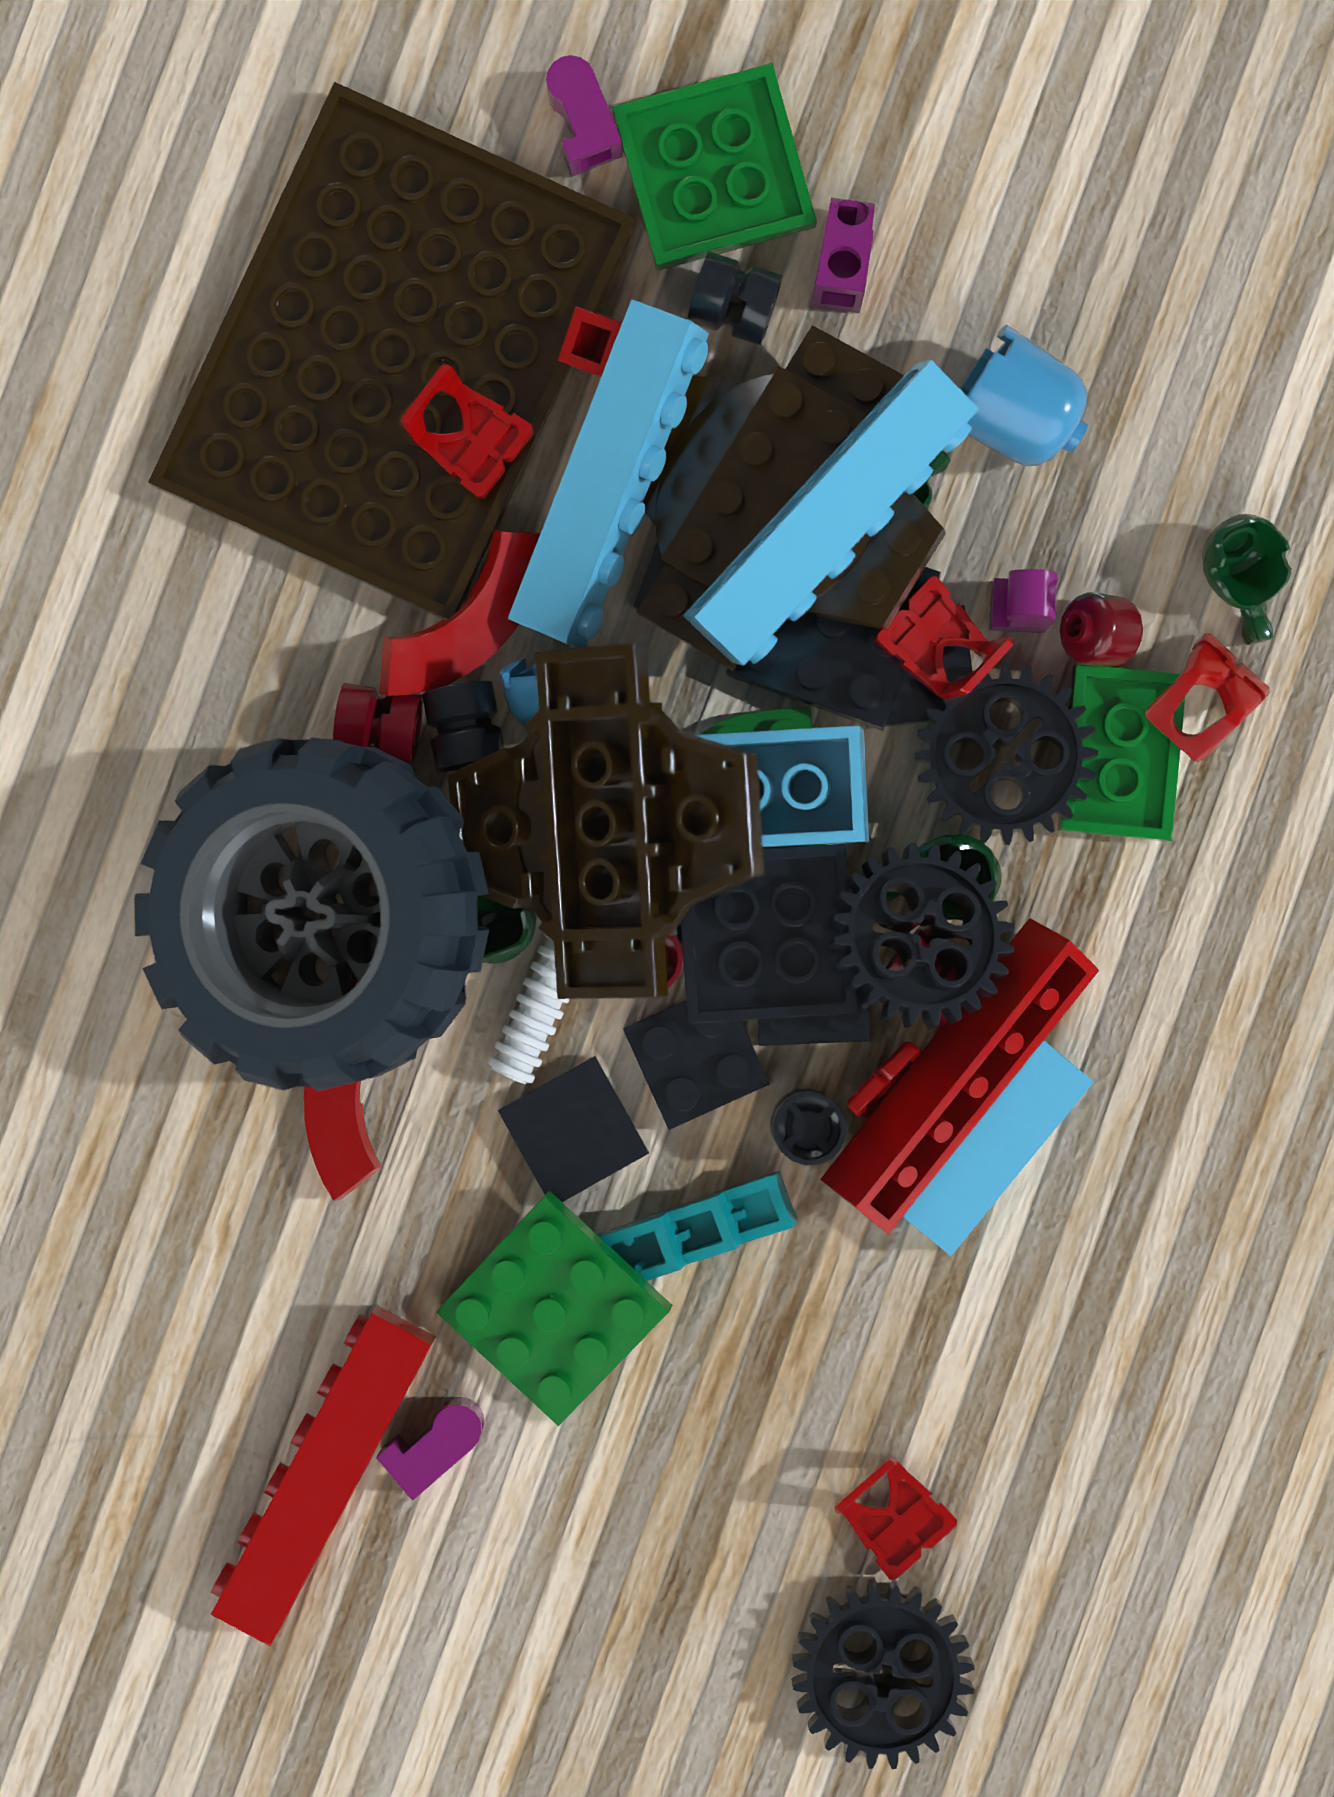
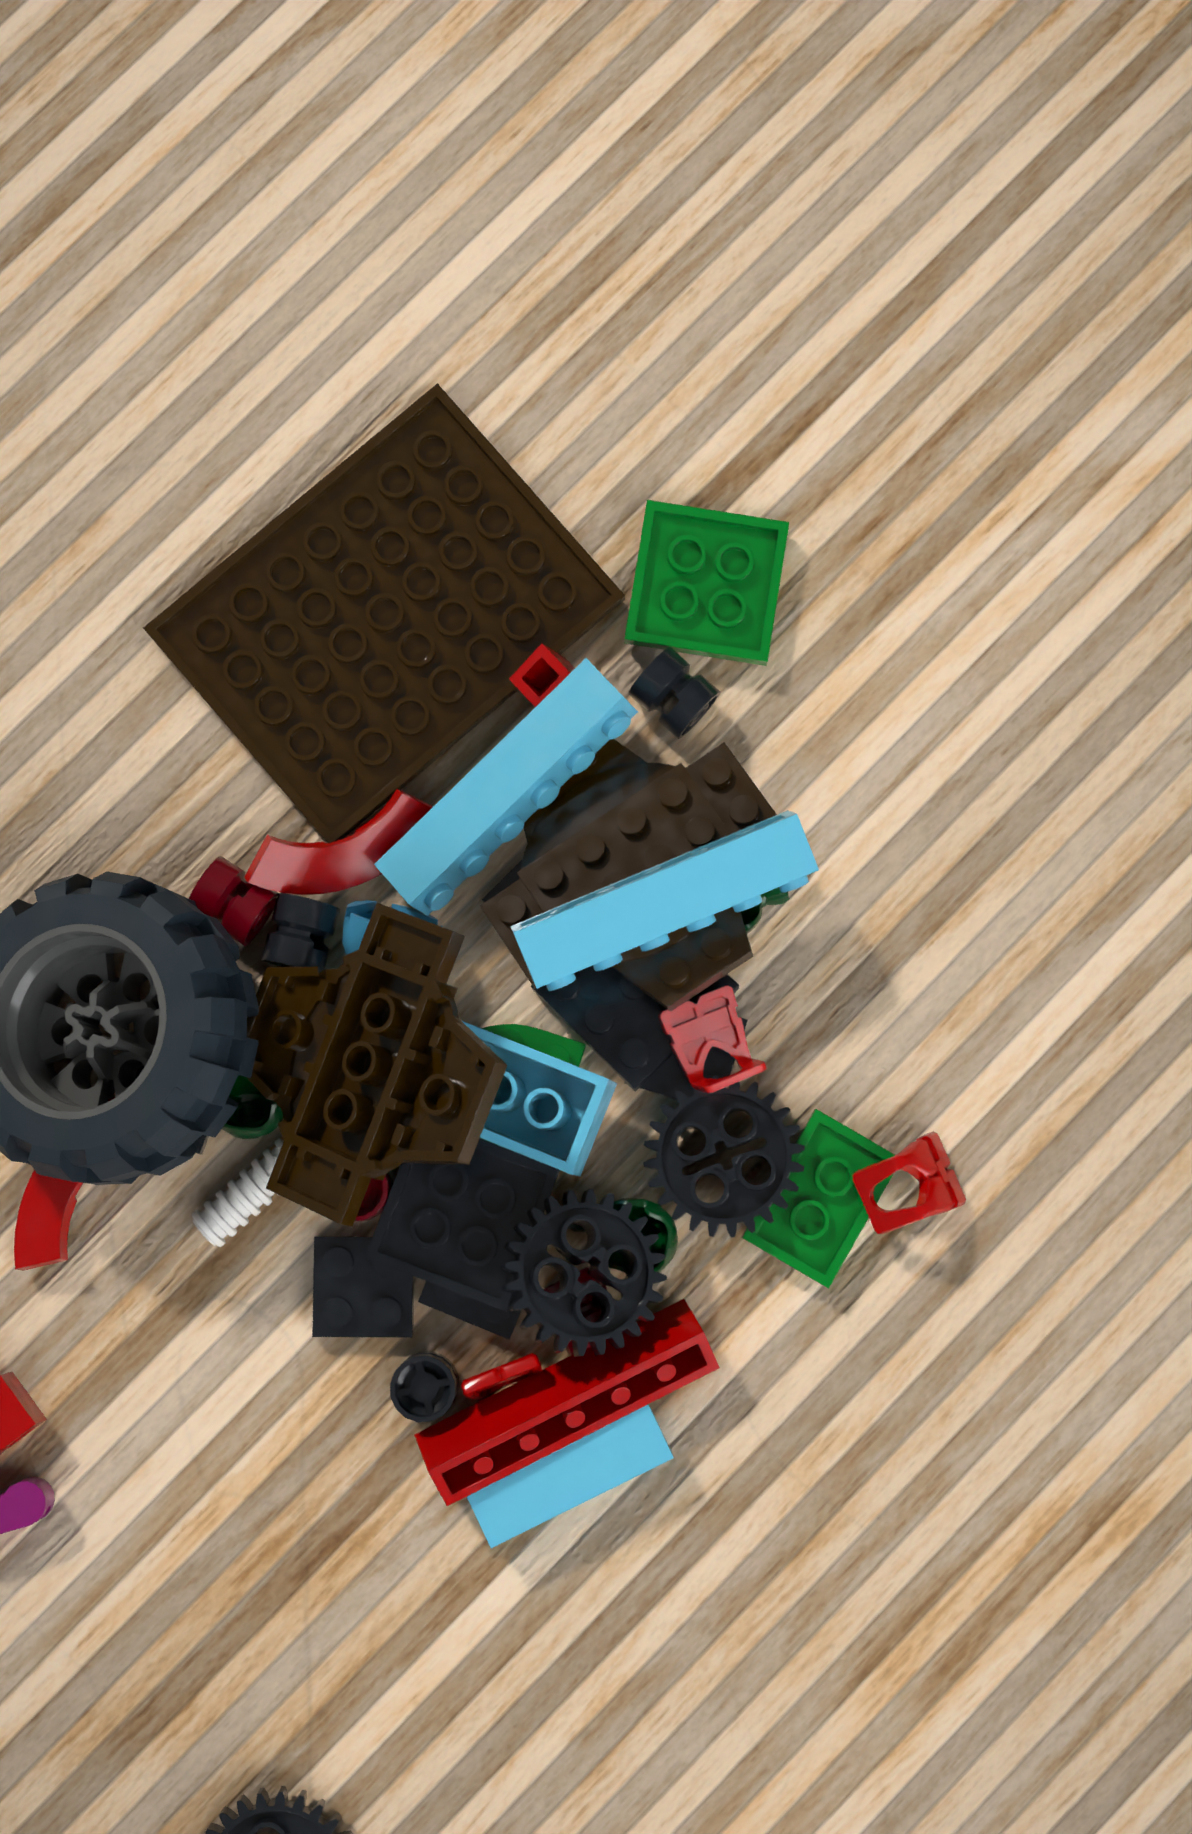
camera: 25 degrees right, 5 degrees down
(484, 443) = (415, 719): red piece -> none
(554, 1308) = (150, 1441): green plate -> none
(573, 1130) = (235, 1302): black tile -> none
(578, 98) = (623, 479): magenta leg -> none
(704, 1226) = (280, 1428): teal slope -> none
(844, 256) = (777, 698): magenta leg -> none
(902, 1528) = (353, 1757): red piece -> none
(1023, 601) = (795, 1039): magenta leg -> none
(1025, 401) = (867, 879): dark azure cylinder -> none
(1101, 630) = (847, 1090): dark red head -> none
(1247, 569) = (988, 1095): dark green hair -> none

